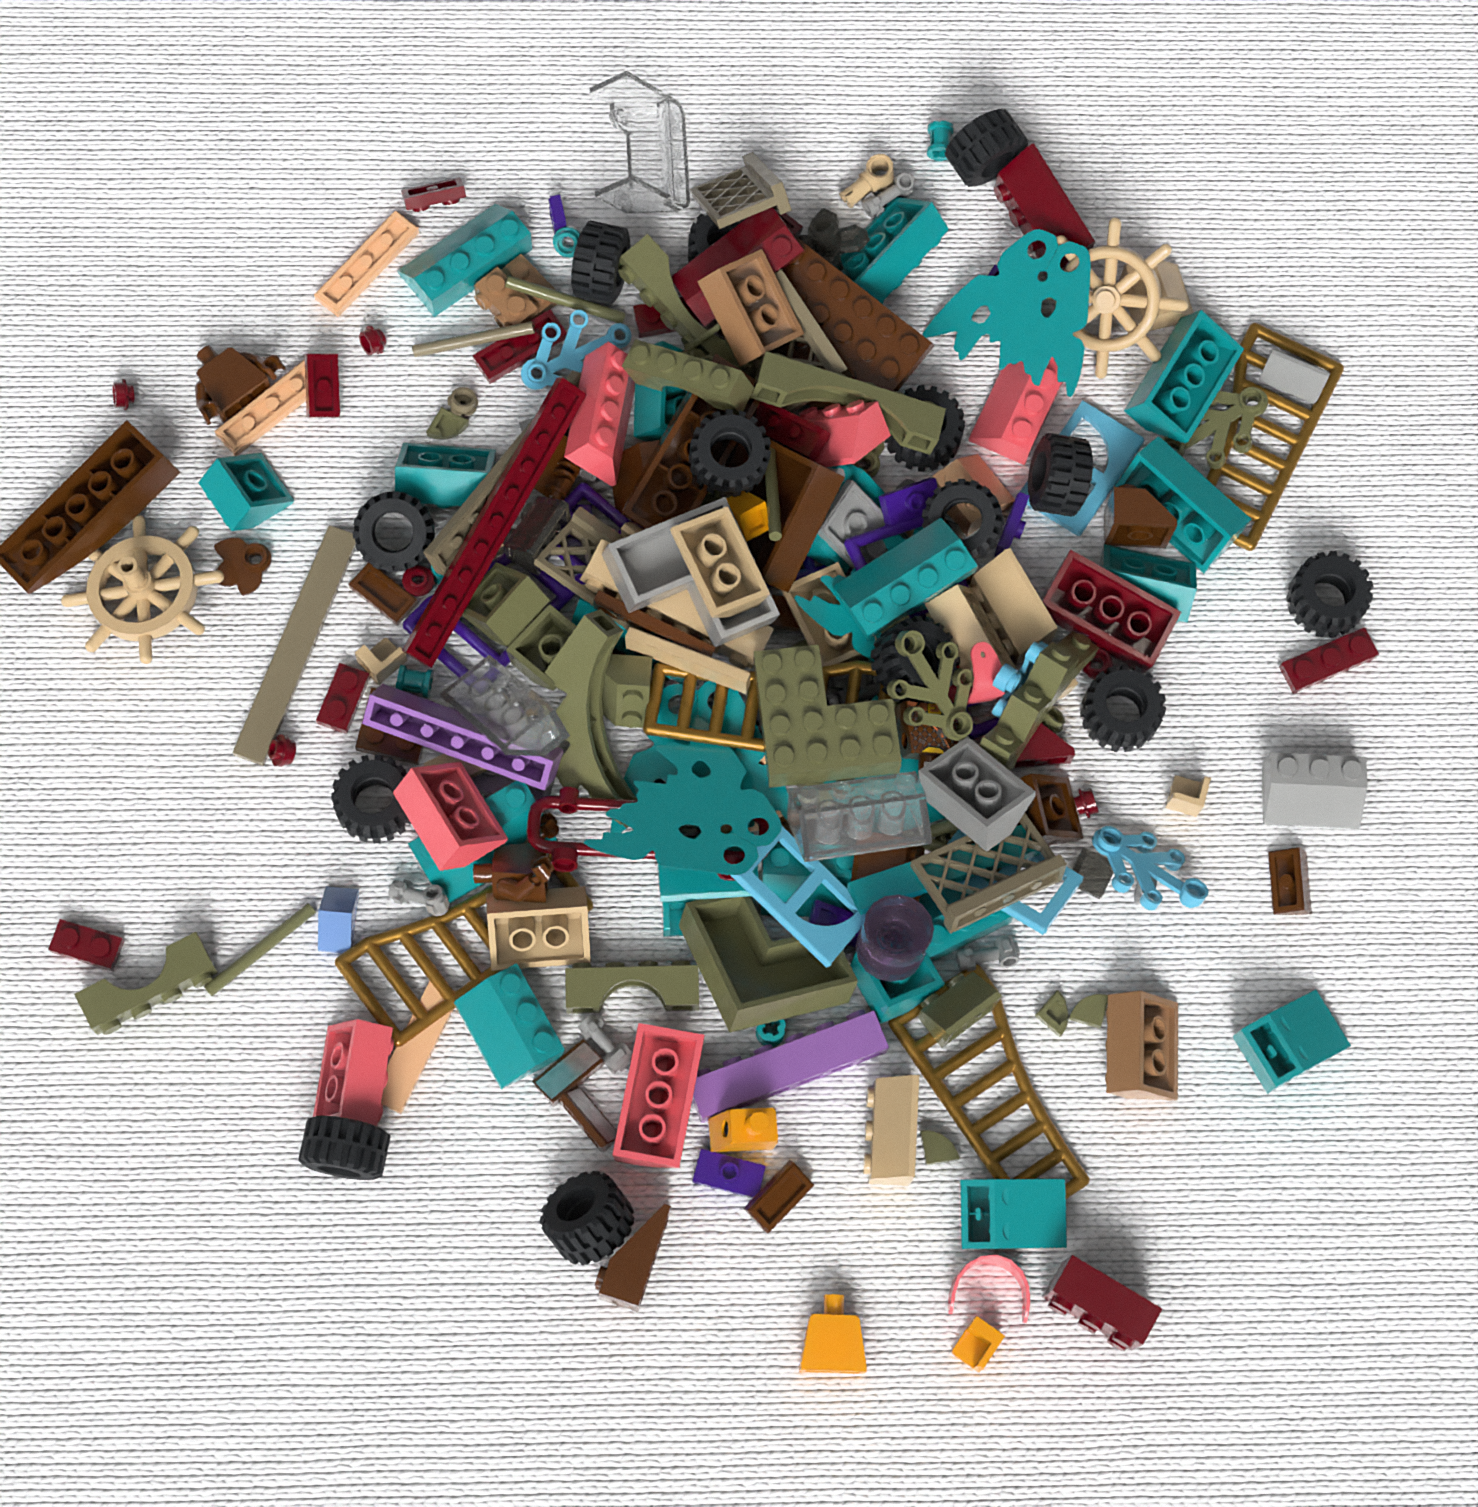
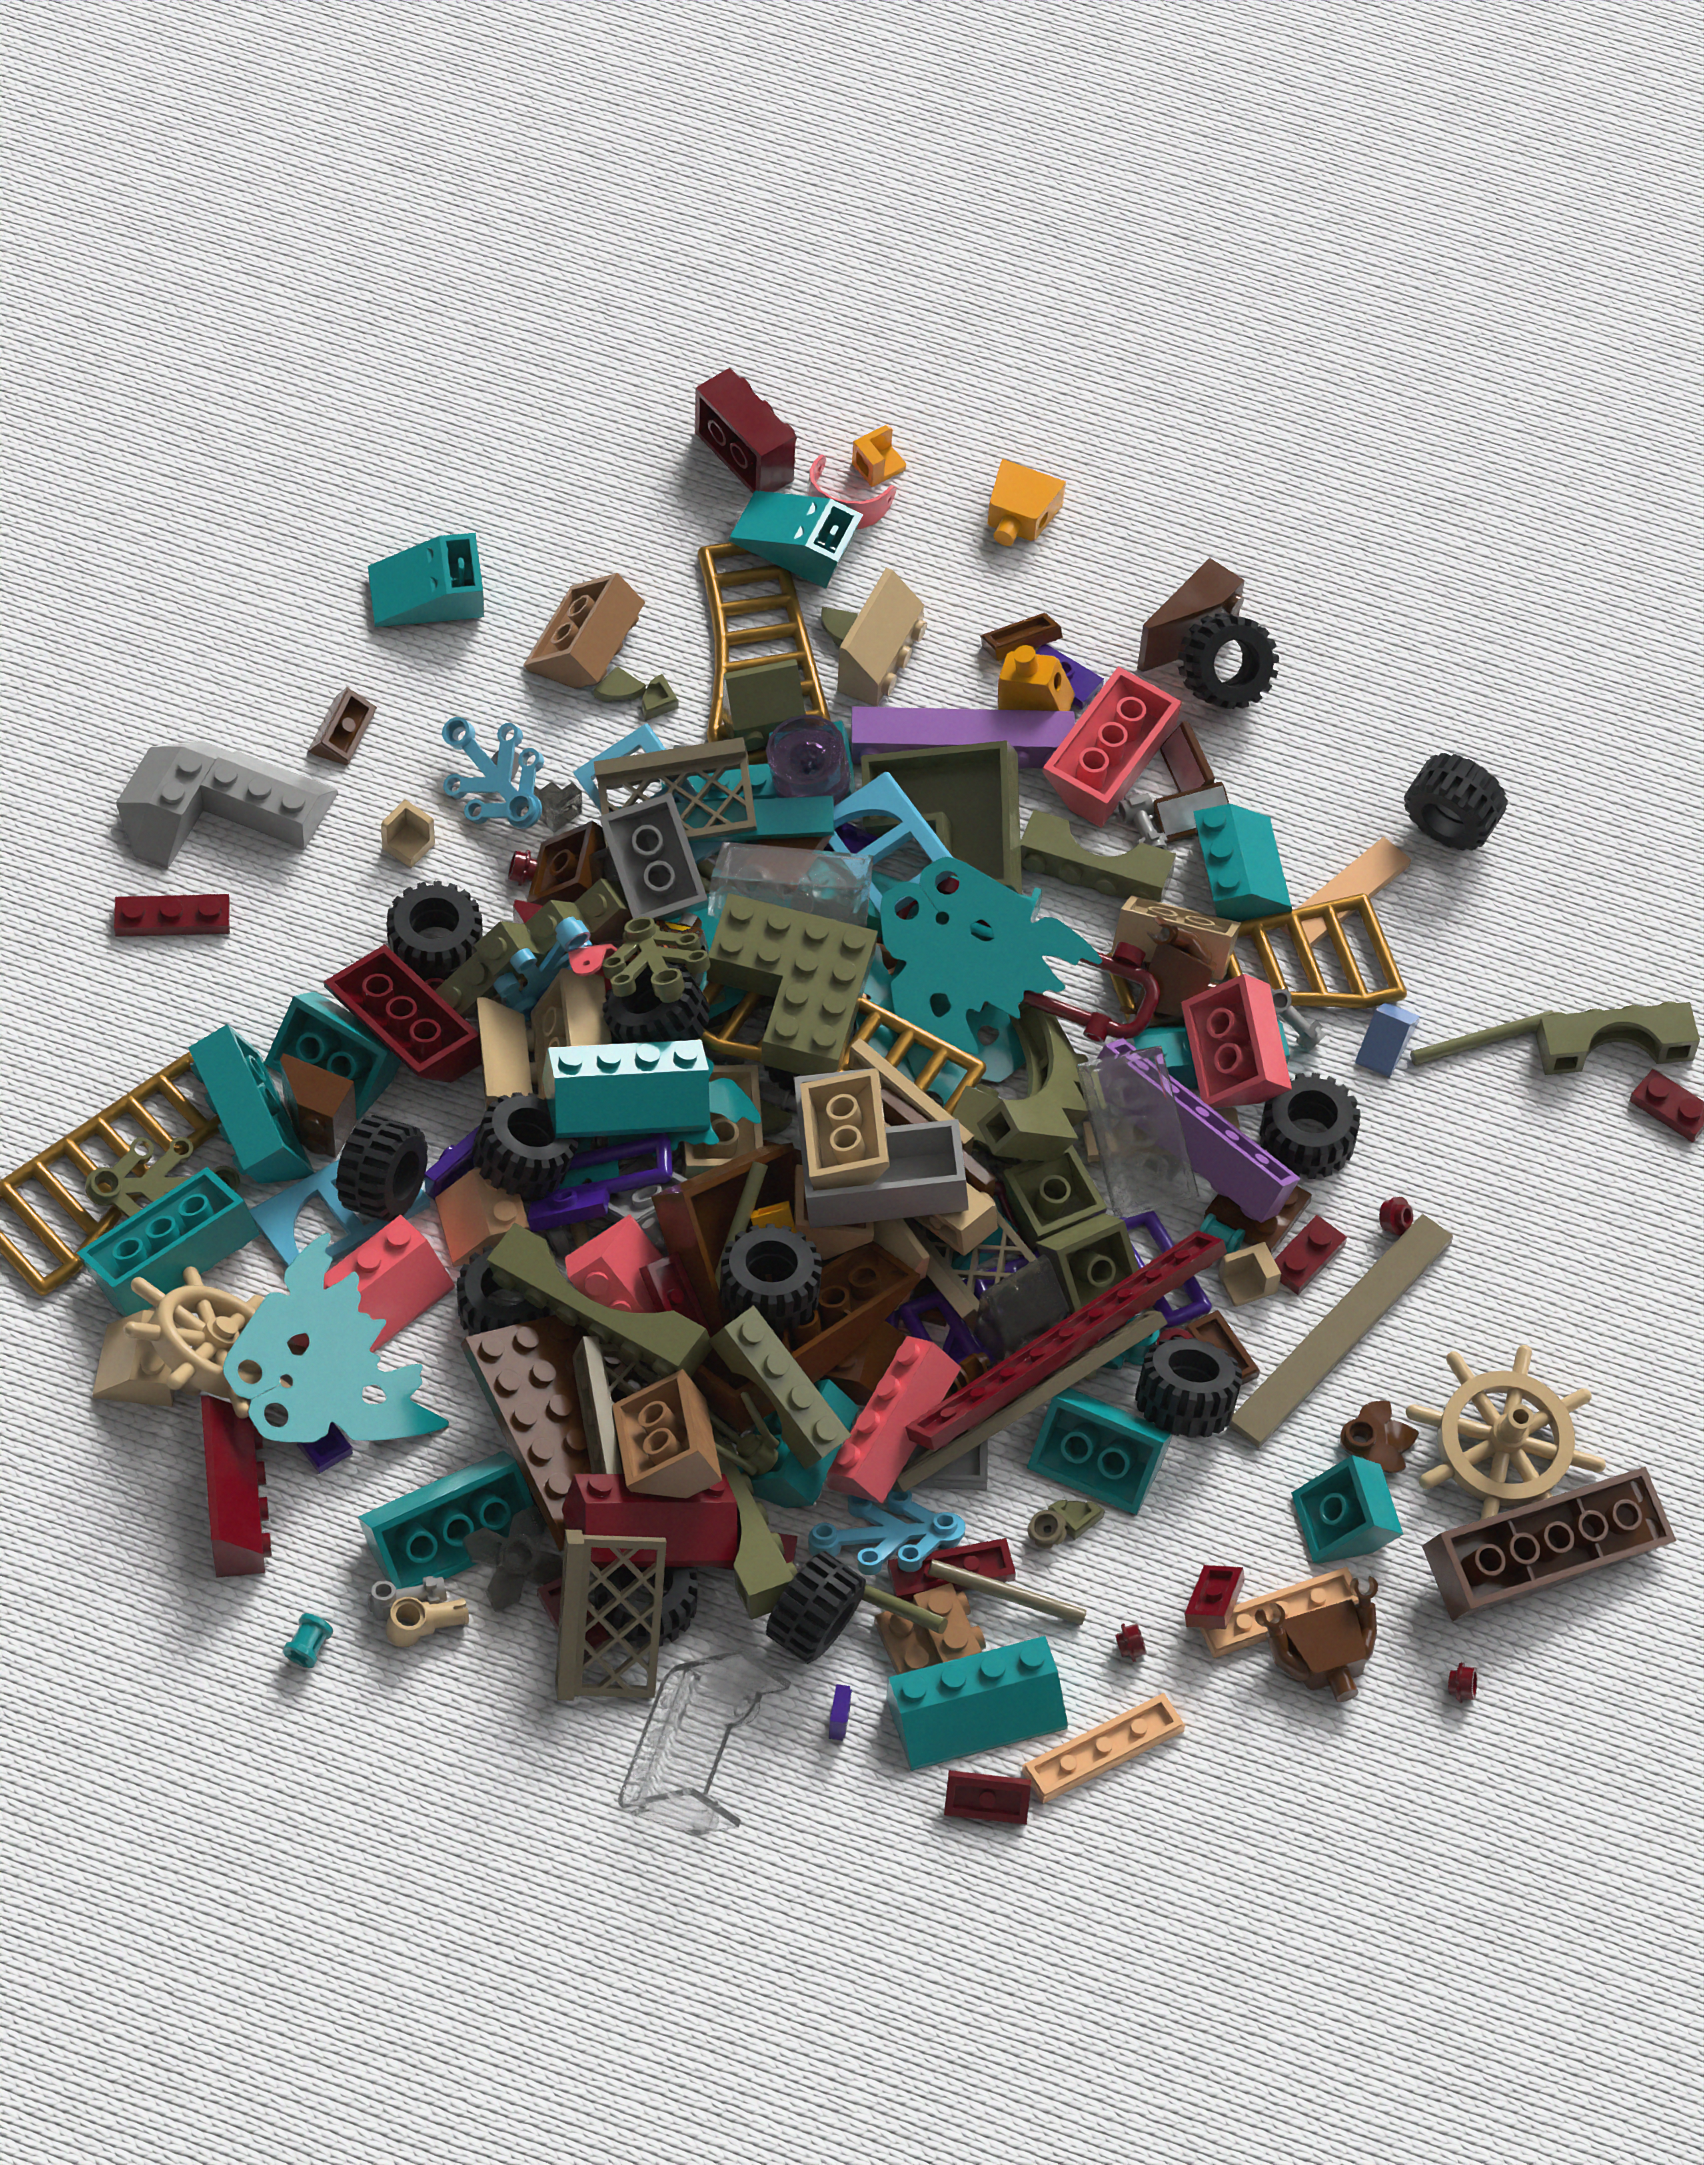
camera: 155 degrees left, 15 degrees down
(354, 1071) = (1424, 875): coral slope -> none
(559, 244) = (841, 1673): teal plate -> none
(985, 147) = (263, 1582): black tyre -> none
(1294, 376) = (35, 1202): light grey slope -> none
(1339, 573) = (136, 939): black tyre -> none
(1393, 763) = (165, 799): none -> light grey wedge

